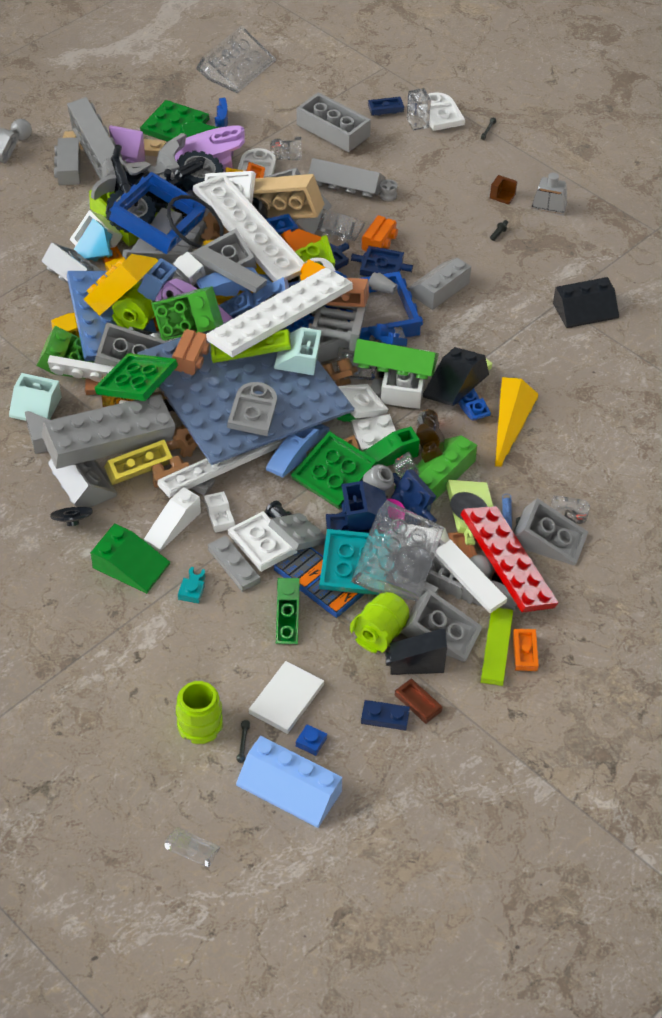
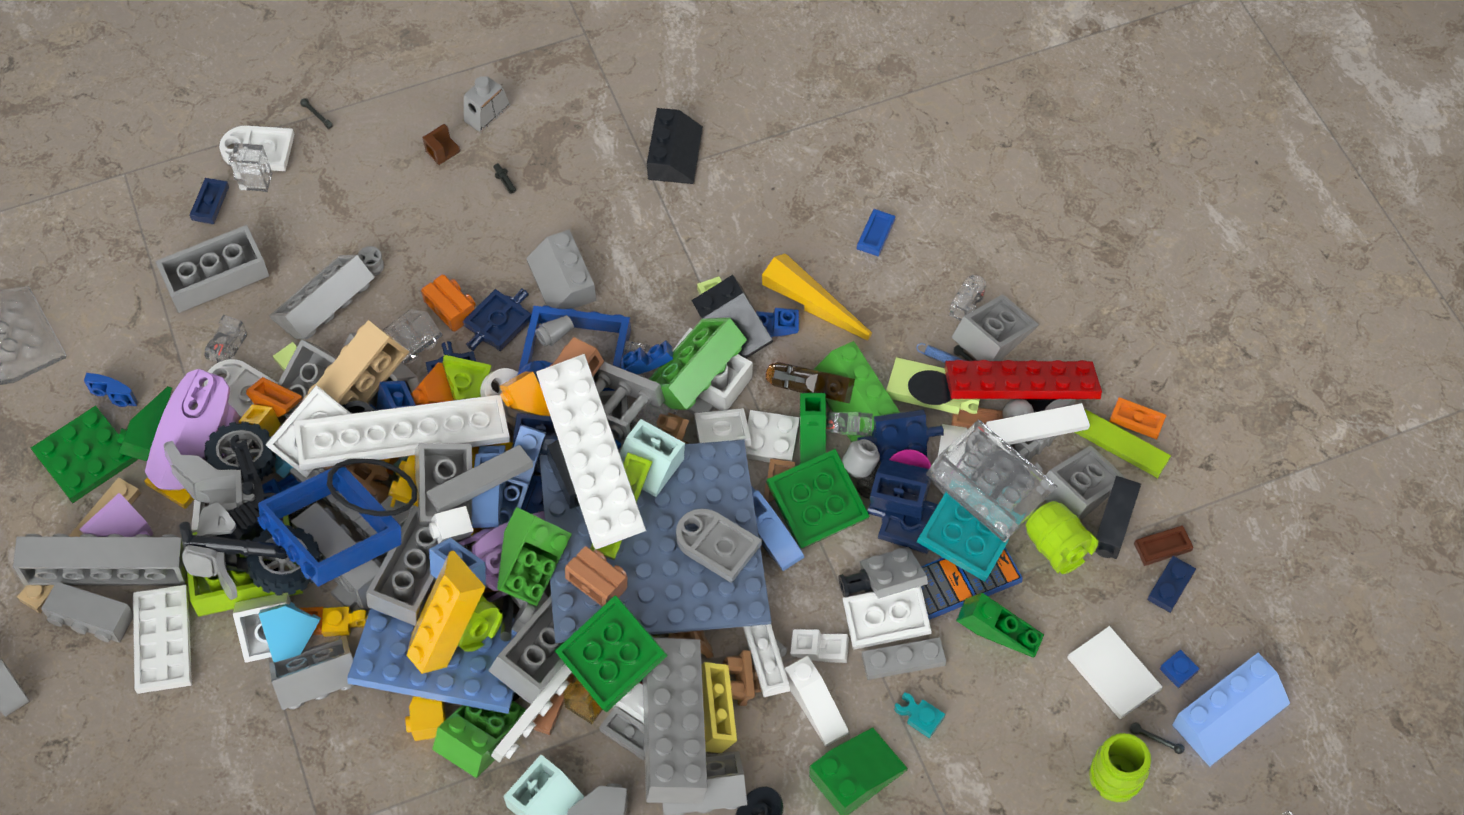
camera: 65 degrees left, 10 degrees up
(62, 198) = (161, 639): none -> white plate
(594, 440) = (876, 232): none -> blue tile

